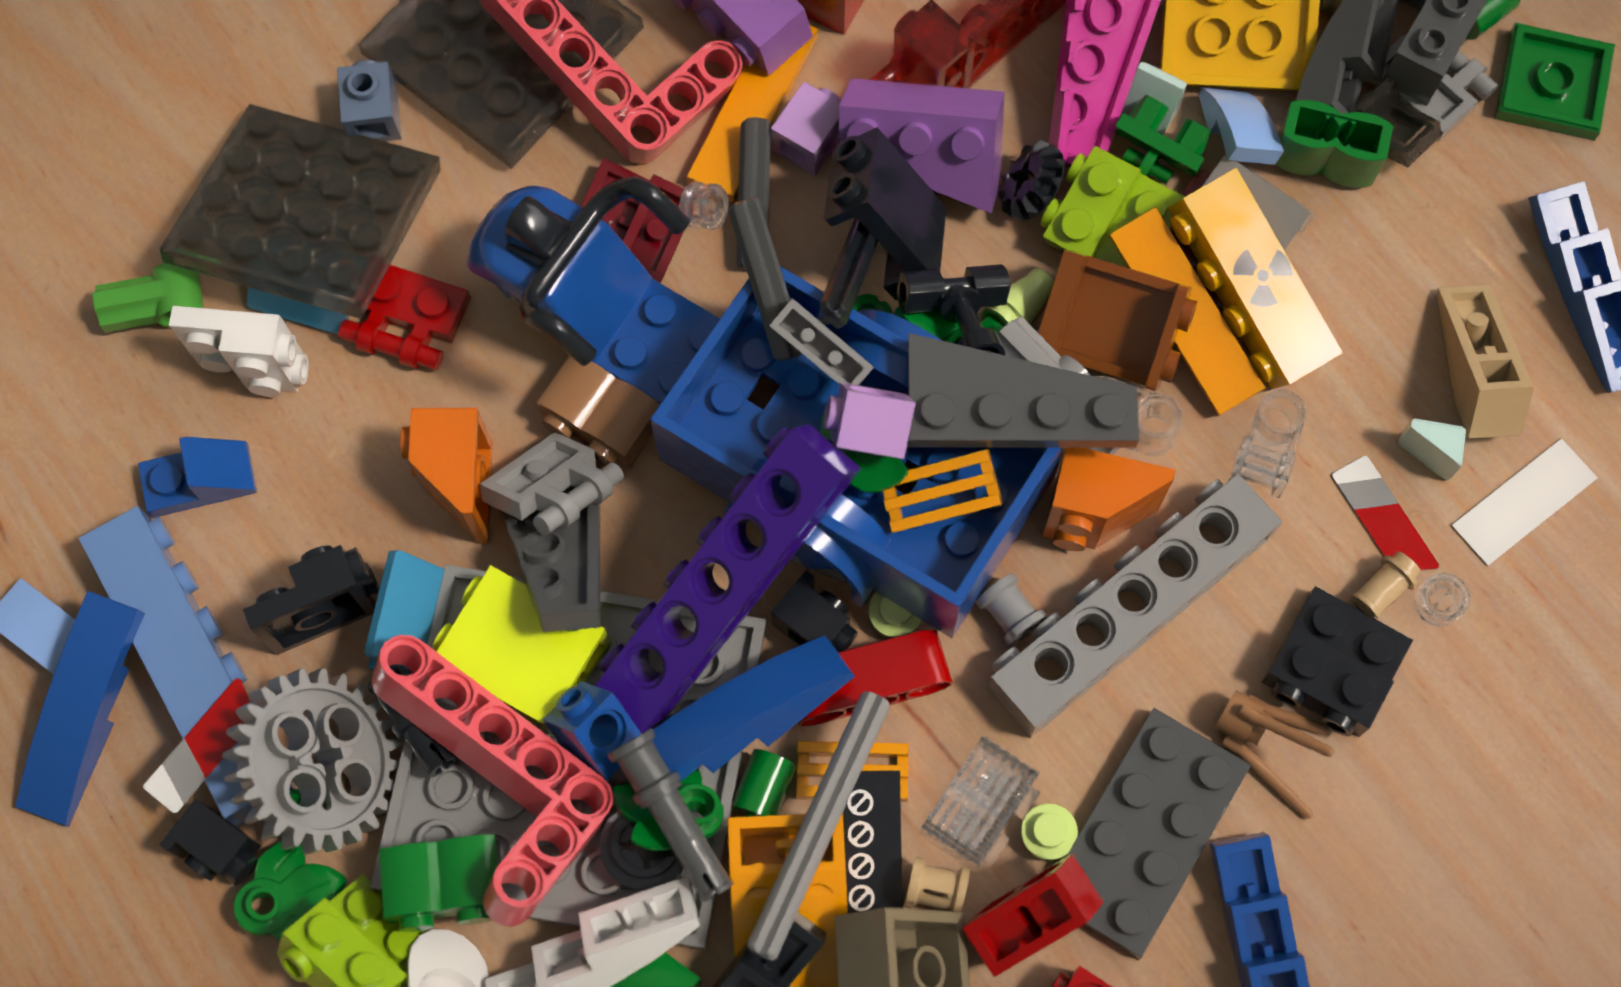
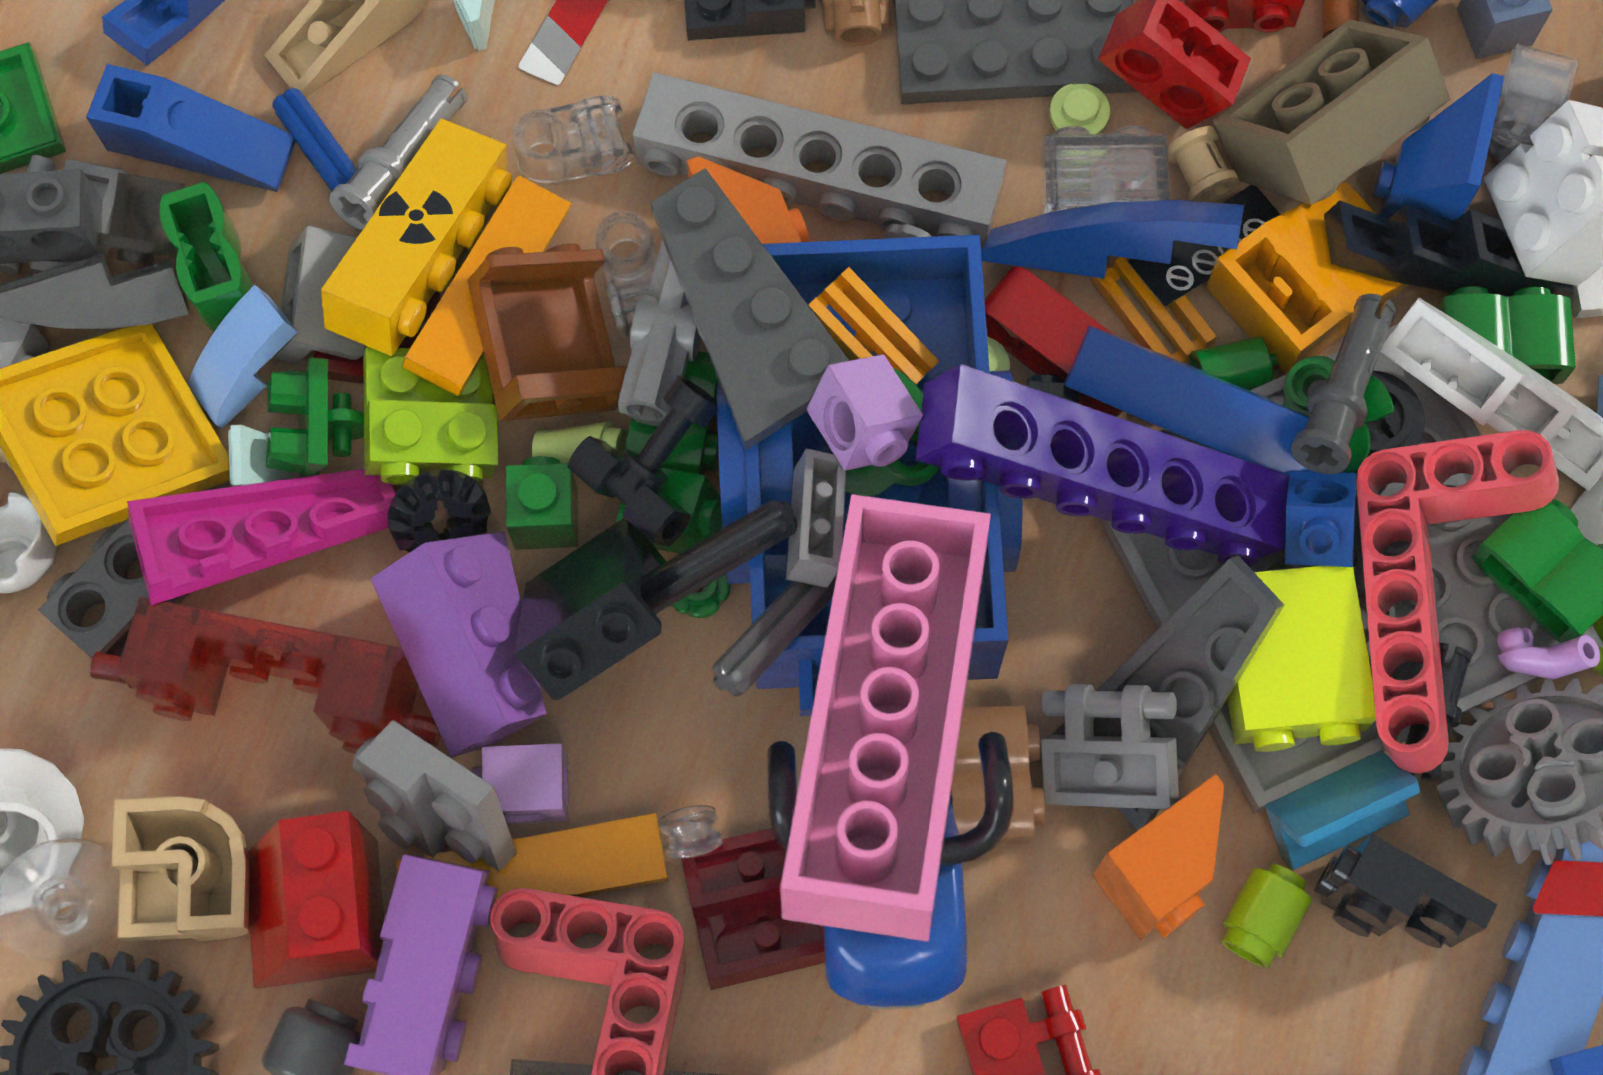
camera: 125 degrees left, 0 degrees up
(377, 519) = (1266, 915): none -> lime brick
(389, 824) = (1545, 662): none -> lavender arm
(643, 278) = (886, 719): none -> bright pink brick
(754, 166) = (640, 790): dark grey axle -> none
(818, 826) = (1248, 261): light grey axle -> none
(835, 52) = (432, 799): none -> light grey plate
(917, 773) = (1087, 237): none -> blue slope
(996, 241) = (541, 504): none -> green brick
(1327, 294) = (383, 165): none -> light grey pin
(1370, 276) = (314, 138): none -> blue axle
(1448, 188) = (186, 130): none -> blue slope

